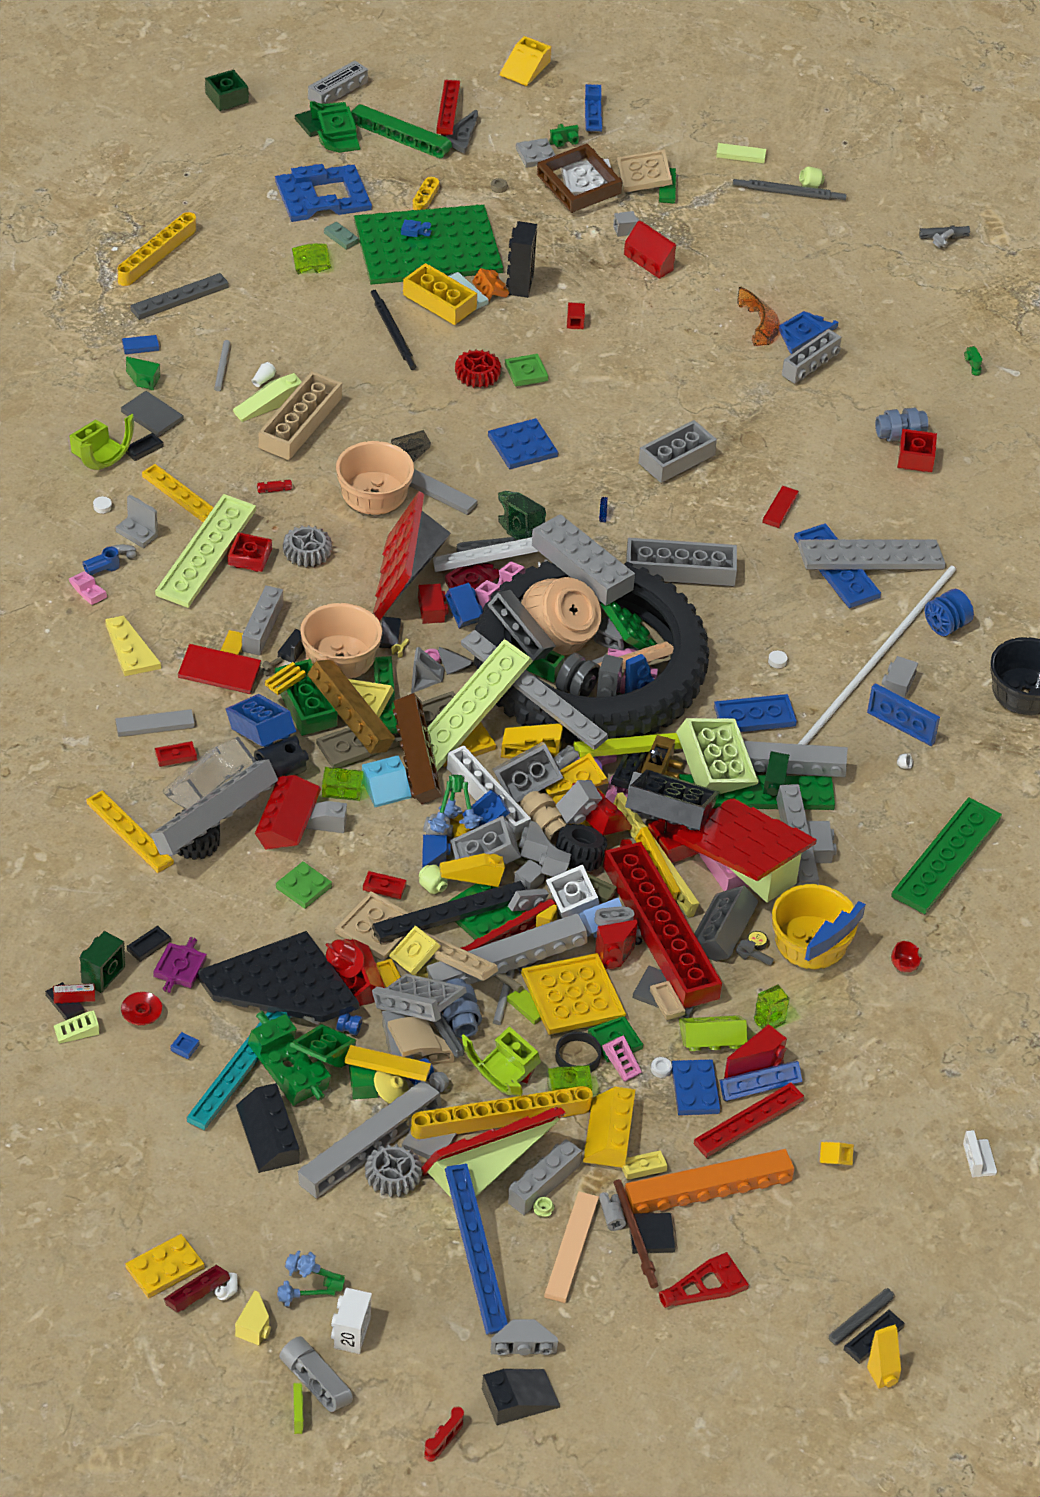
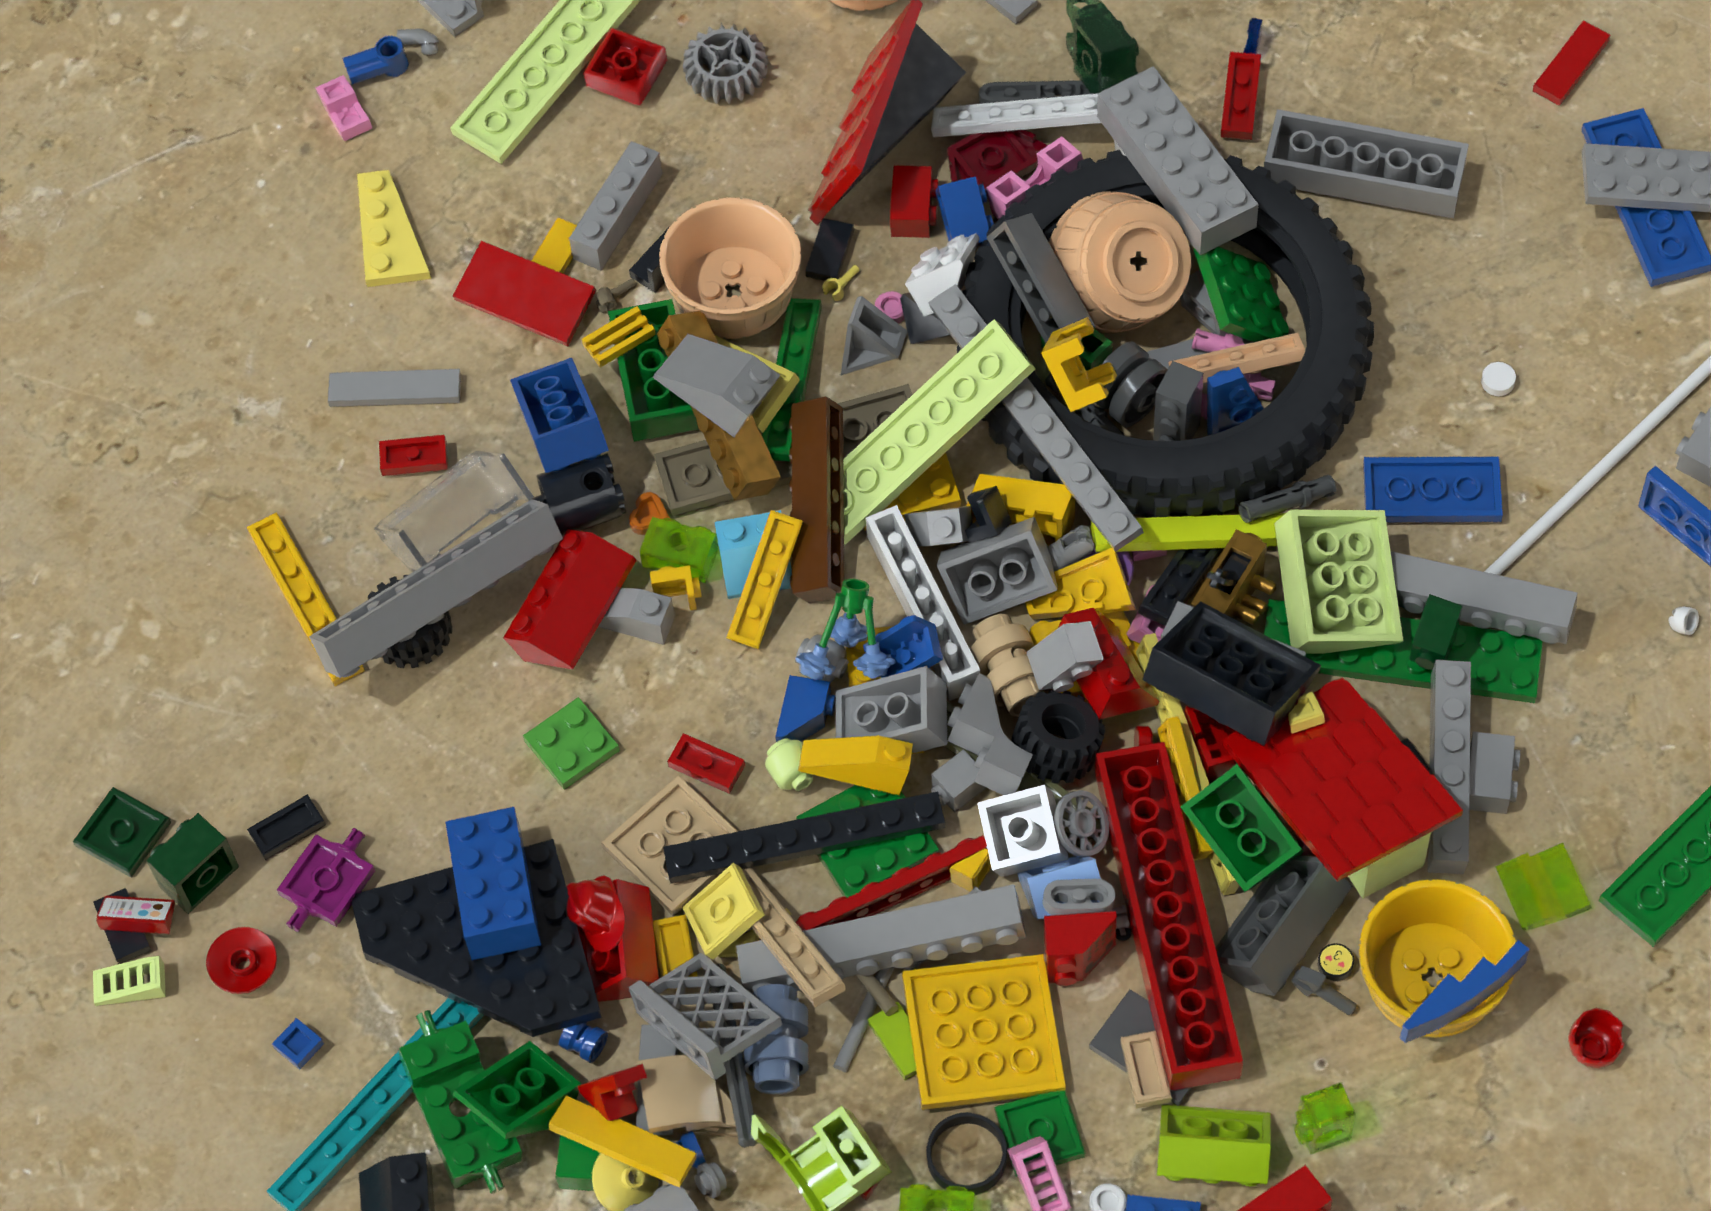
camera: 20 degrees right, 15 degrees up
(52, 956) = (122, 832): none -> dark green tile
(282, 949) = (492, 883): none -> blue brick
(317, 770) = (647, 506): none -> orange tile
(347, 796) = (675, 582): none -> yellow bracket
(352, 689) = (717, 381): none -> light grey slope
(376, 1037) = (613, 1092): none -> red slope
(396, 790) = (764, 579): none -> yellow tile
(459, 630) = (941, 270): none -> white slope
(491, 754) = (939, 526): none -> light grey slope
(516, 743) = (990, 514): none -> black panel
(527, 899) = (944, 831): light grey plate -> none
(556, 674) = (1074, 382): none -> yellow panel
(603, 533) = (1240, 95): none -> red plate
(604, 884) = (1081, 823): none -> light grey wheel
(672, 726) = (1300, 495): none -> dark grey pin
(695, 875) = (1242, 828): none -> green slope
(717, 814) = (1305, 713): none -> light yellow tile
(862, 889) = (1543, 887): none -> clear neon green slope

